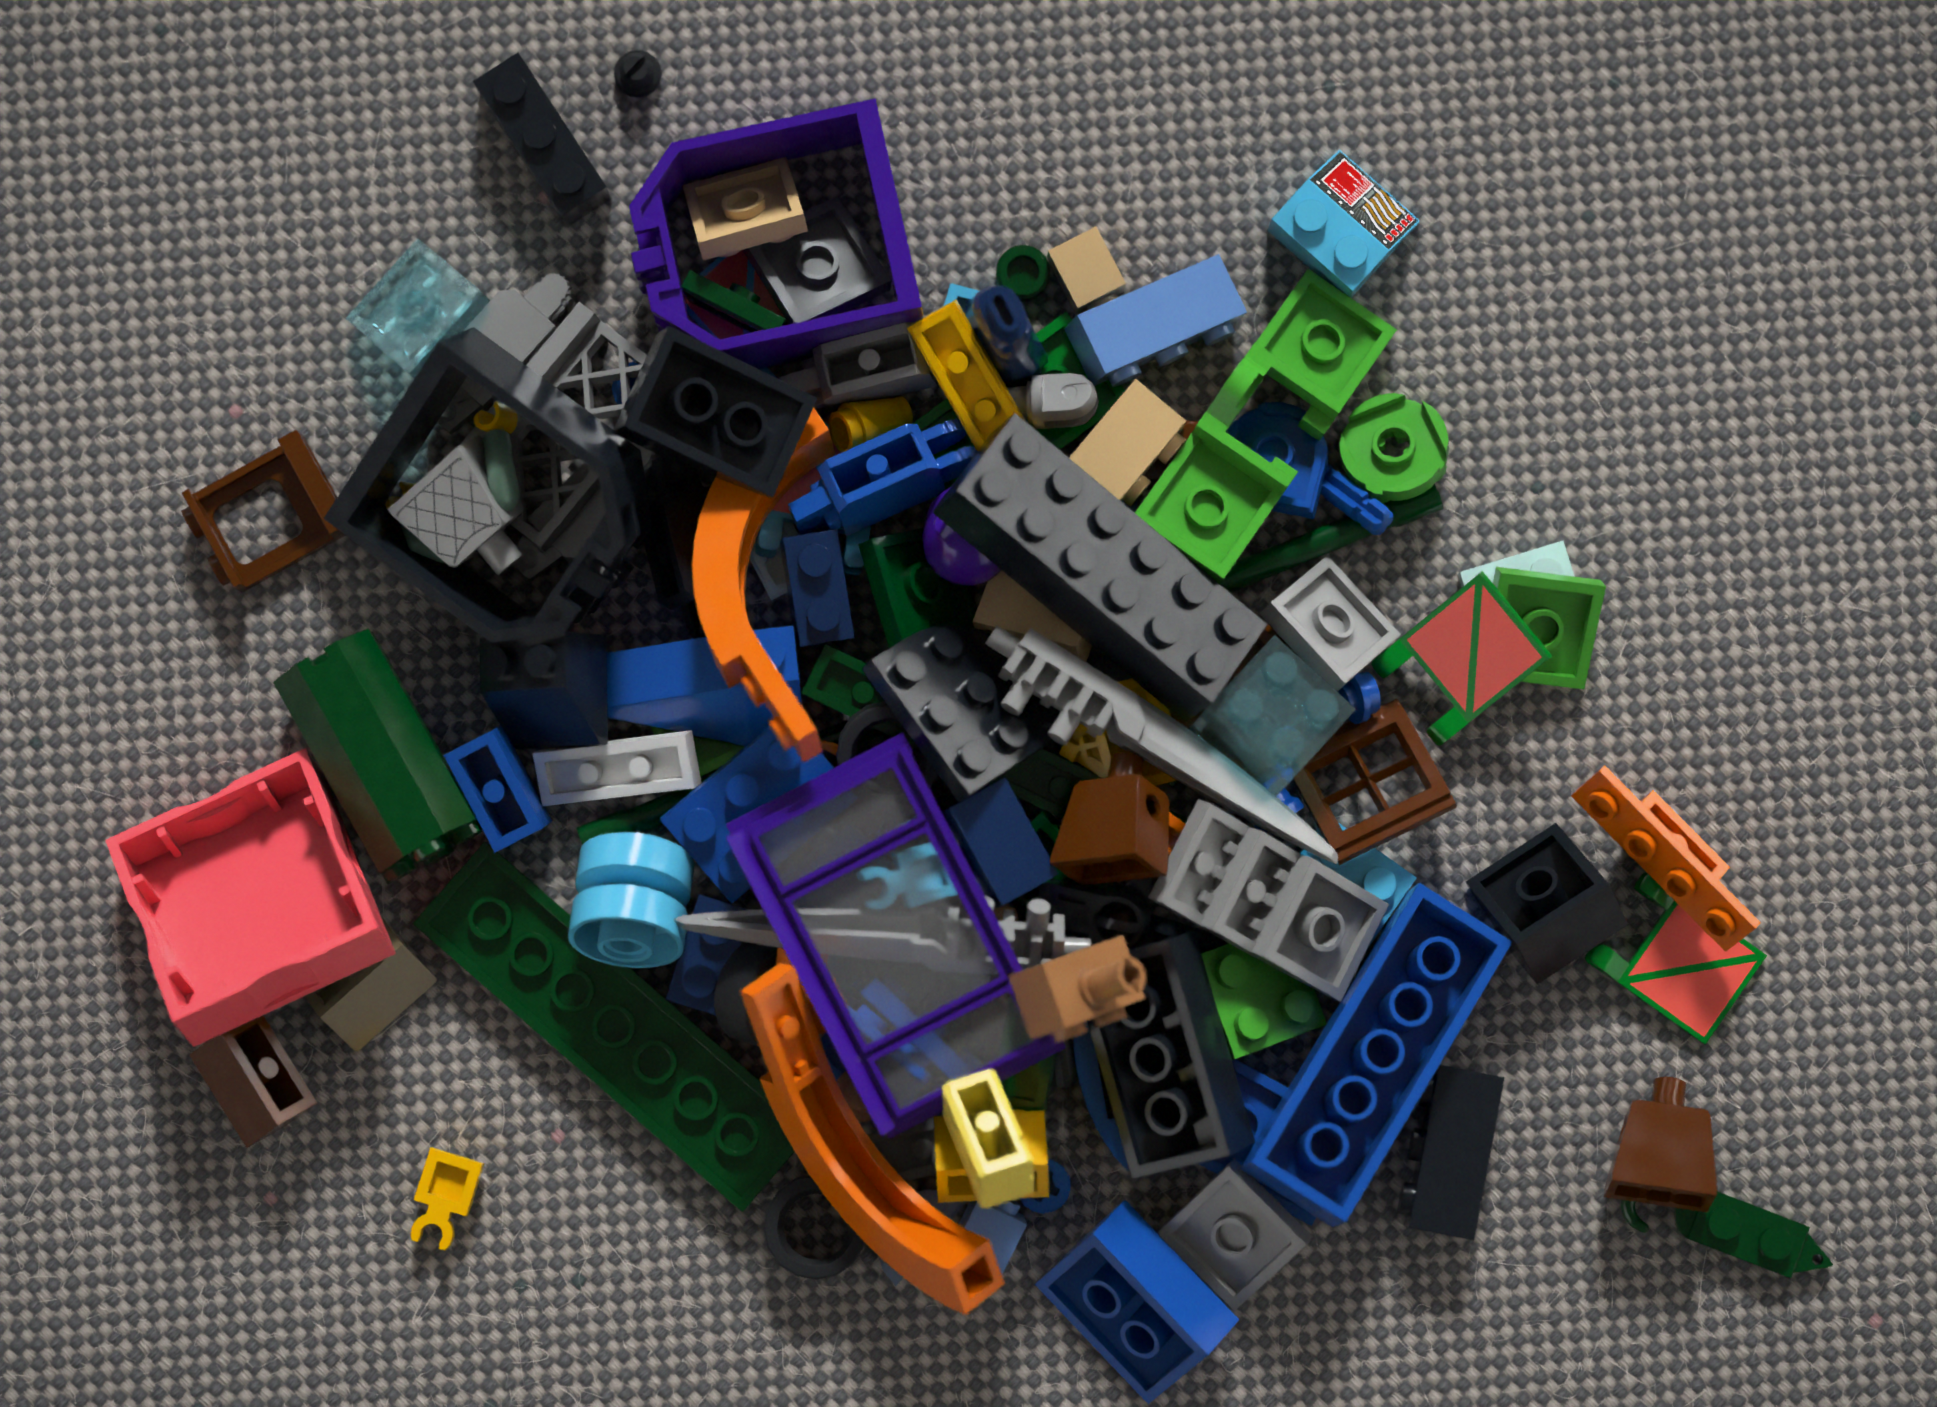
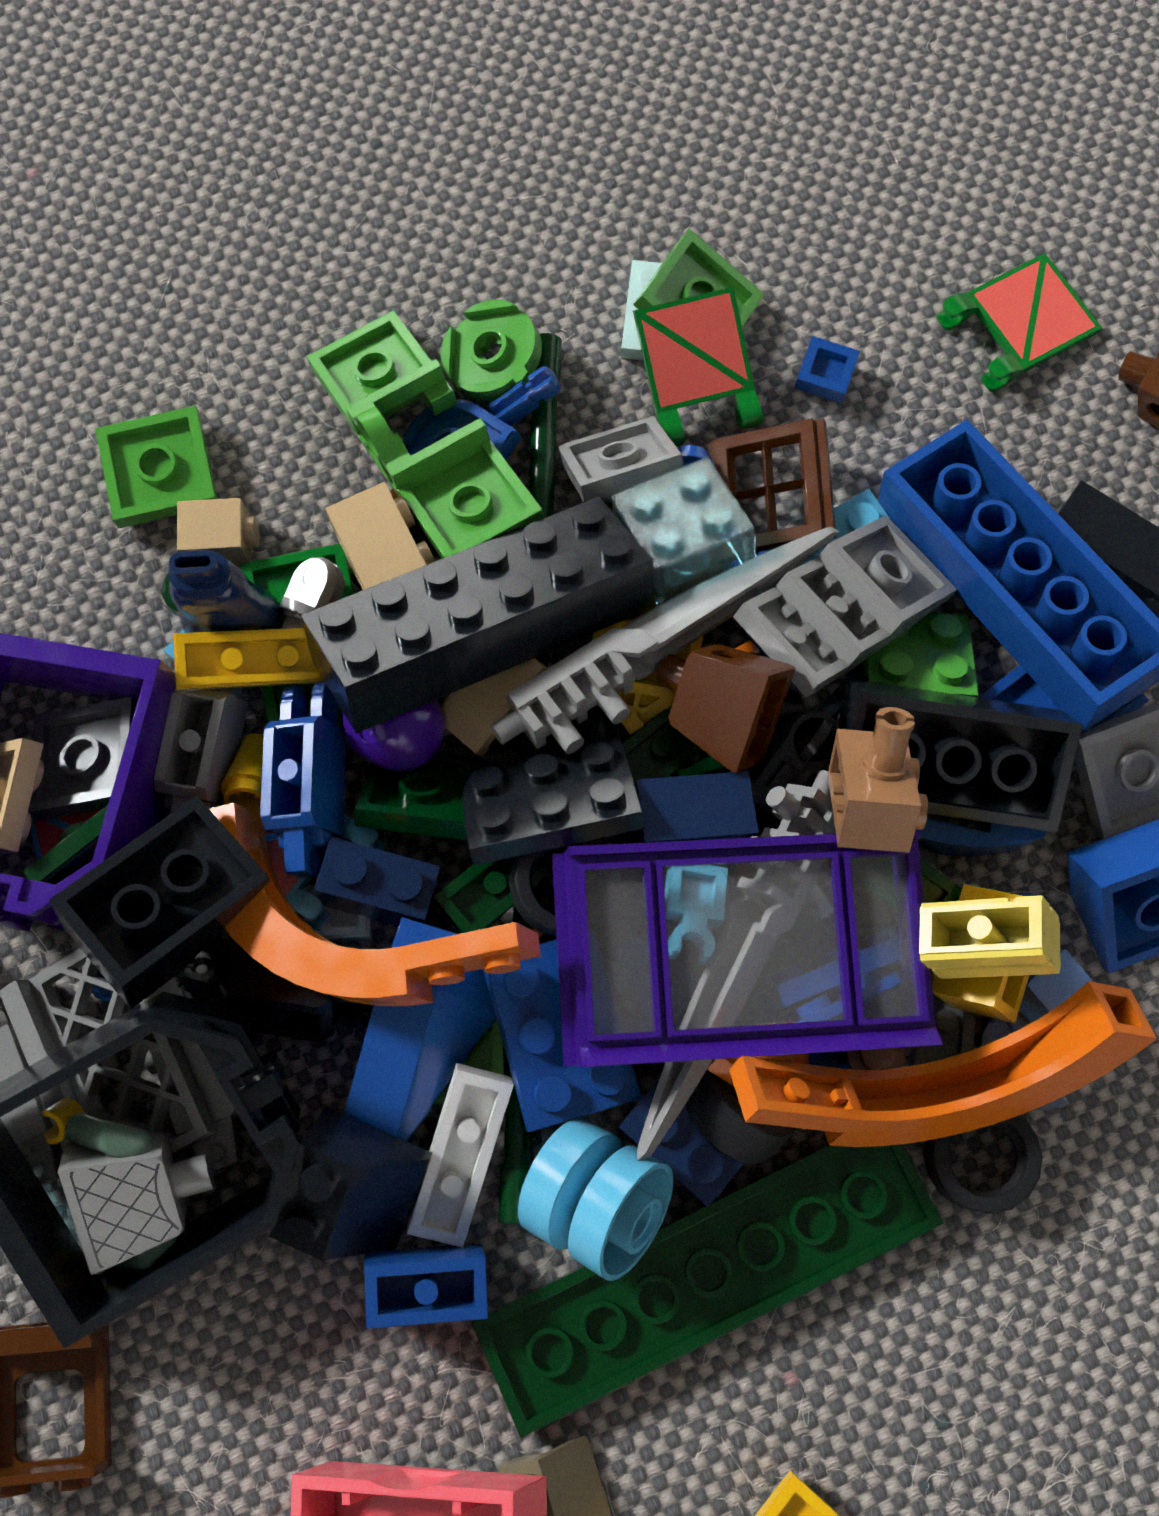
camera: 65 degrees left, 10 degrees down
(378, 755) = (332, 1400): dark green brick -> none
(1131, 180) = (154, 465): none -> bright green plate
(1156, 322) = (287, 490): medium blue brick -> none
(1342, 224) = (285, 321): medium azure slope -> none
(1527, 785) = (827, 369): none -> blue plate
(1547, 902) = (933, 388): black slope -> none
(1669, 854) = (941, 276): orange bracket -> none

